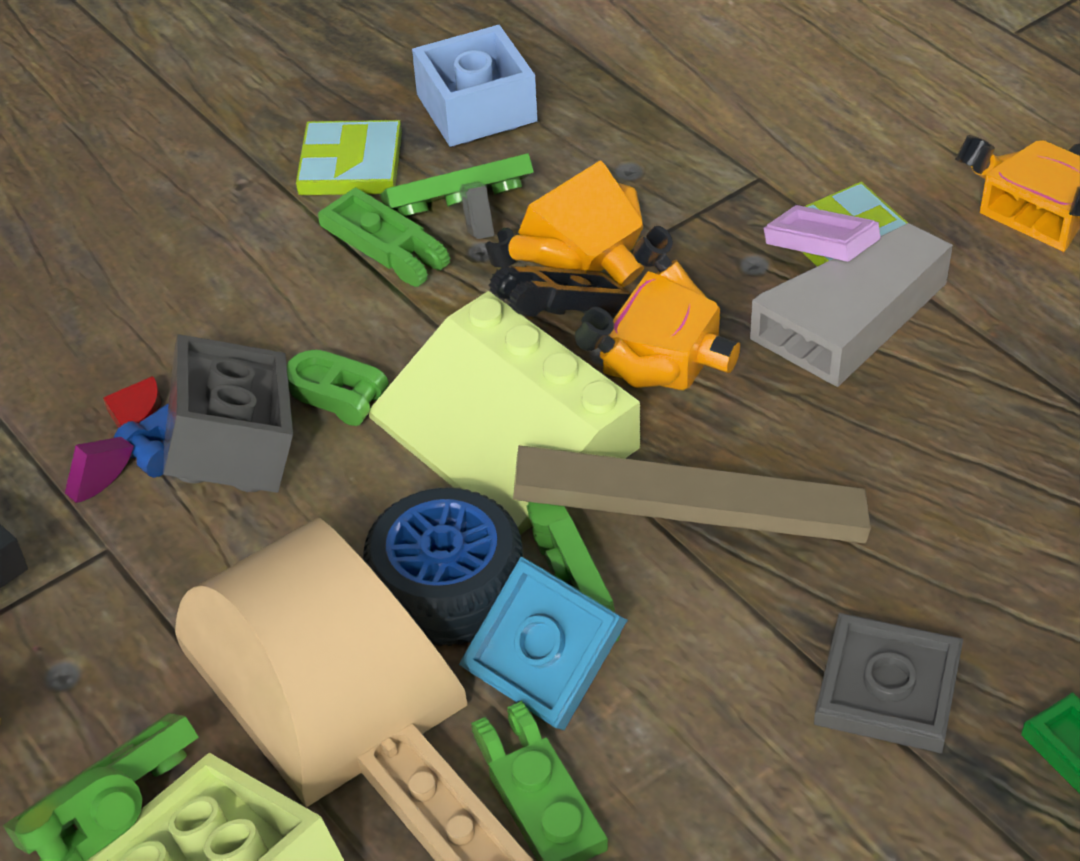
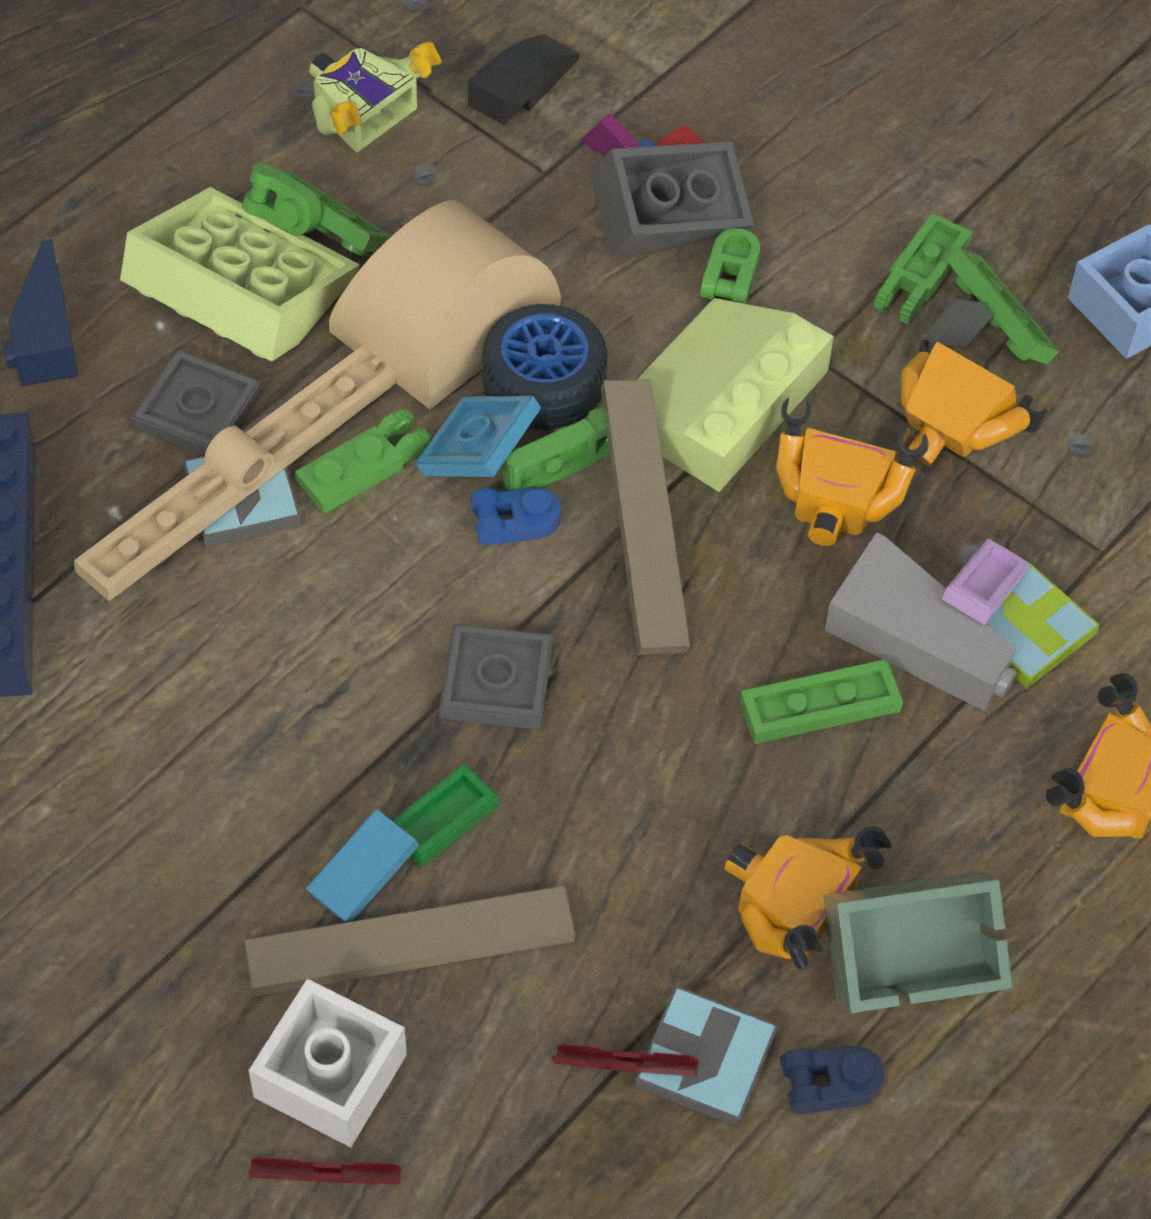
camera: 75 degrees right, 10 degrees up
(349, 156) = (1030, 226): tile -> none
(556, 290) = (858, 390): black hinge -> none
(652, 619) = (533, 514): none -> blue plate
(945, 393) = (820, 701): none -> bright green plate

